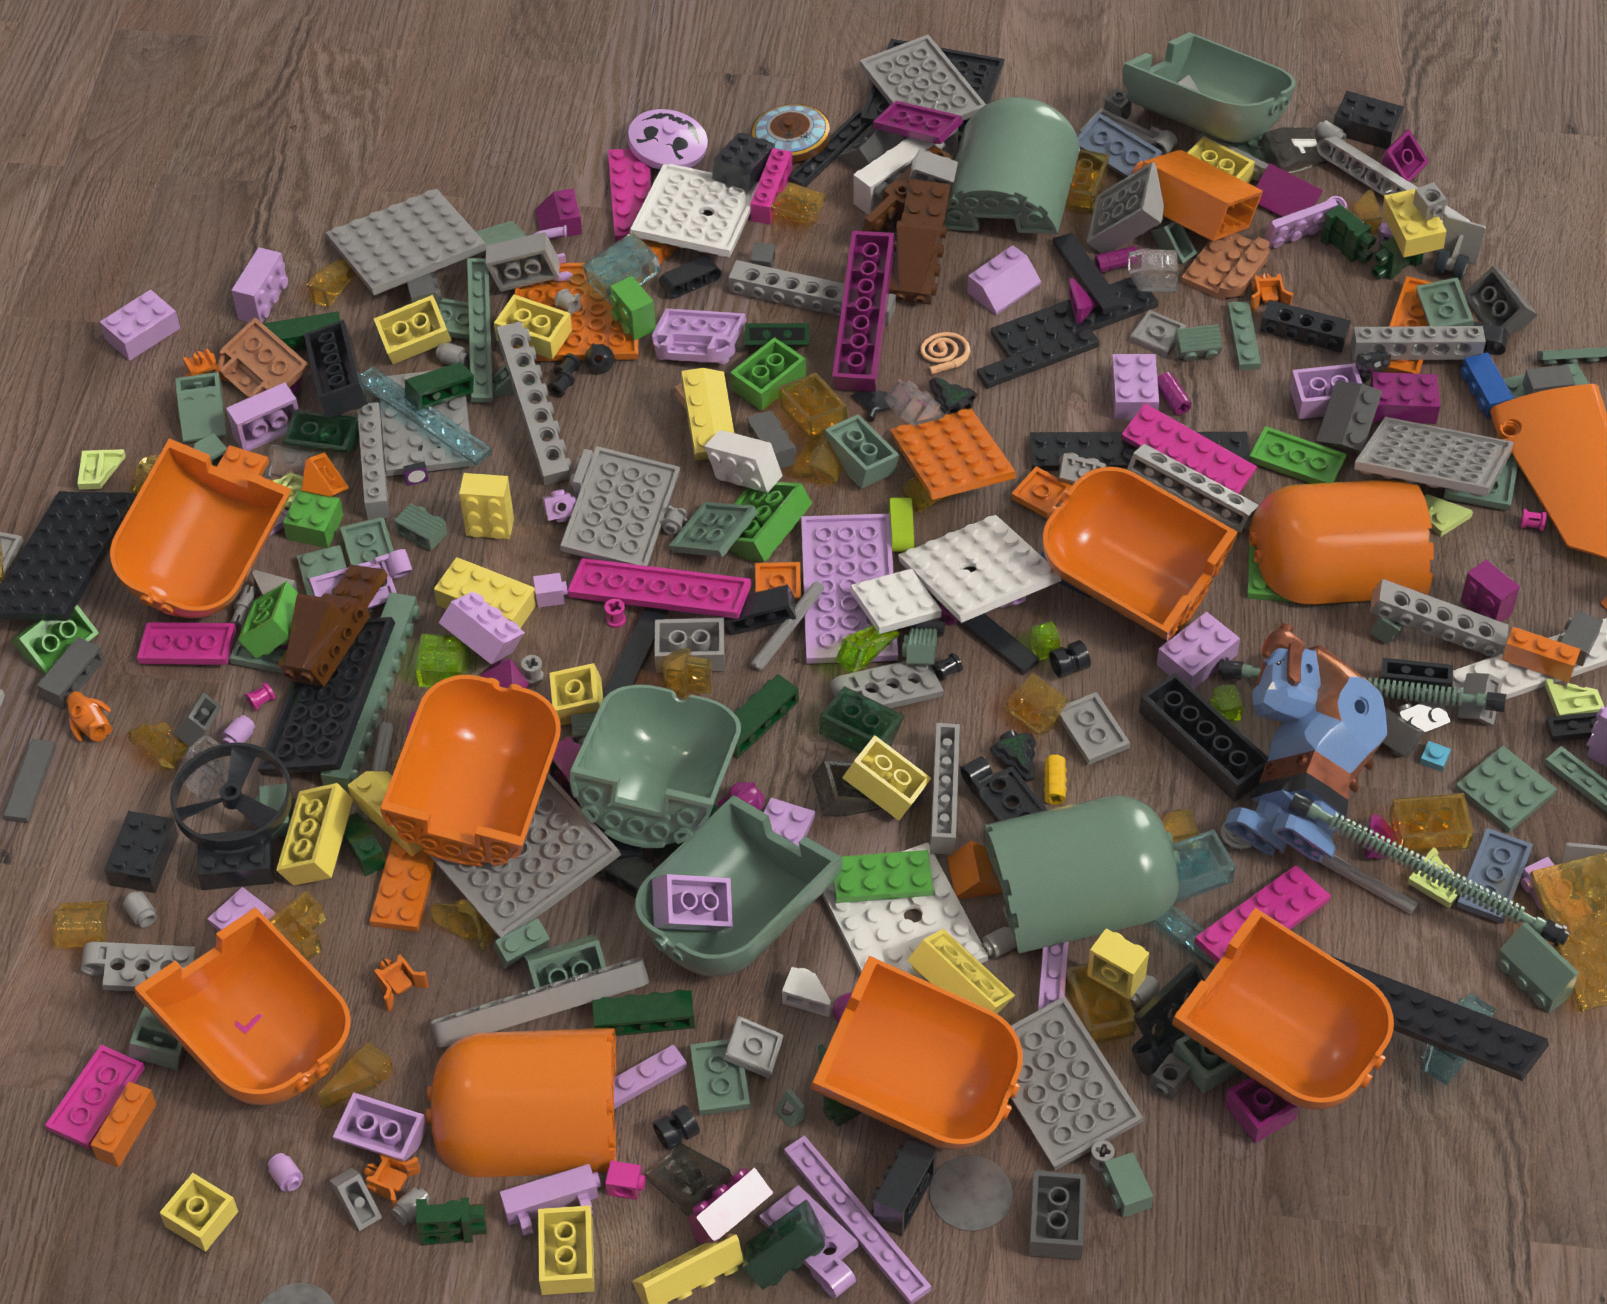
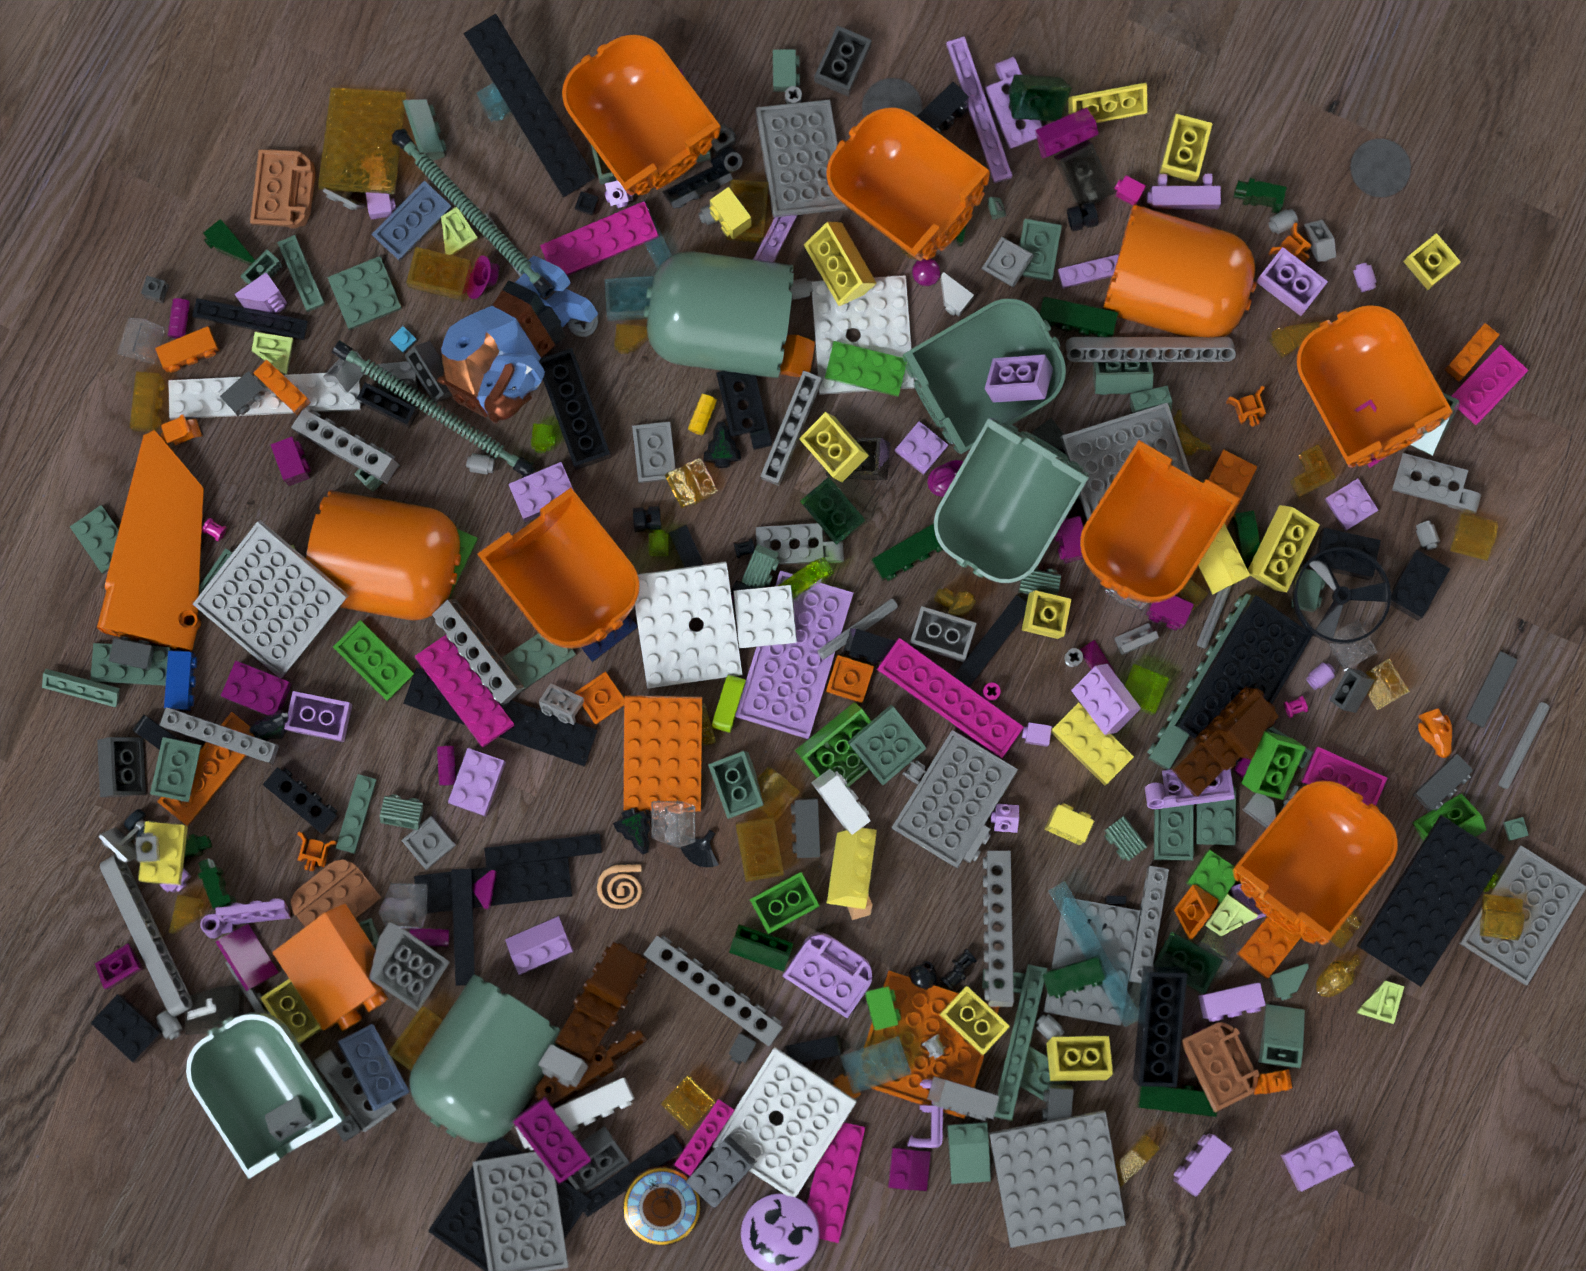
camera: 165 degrees left, 30 degrees up
(863, 311) = (680, 934): magenta brick -> none
(1349, 417) = (317, 673): dark grey slope -> none

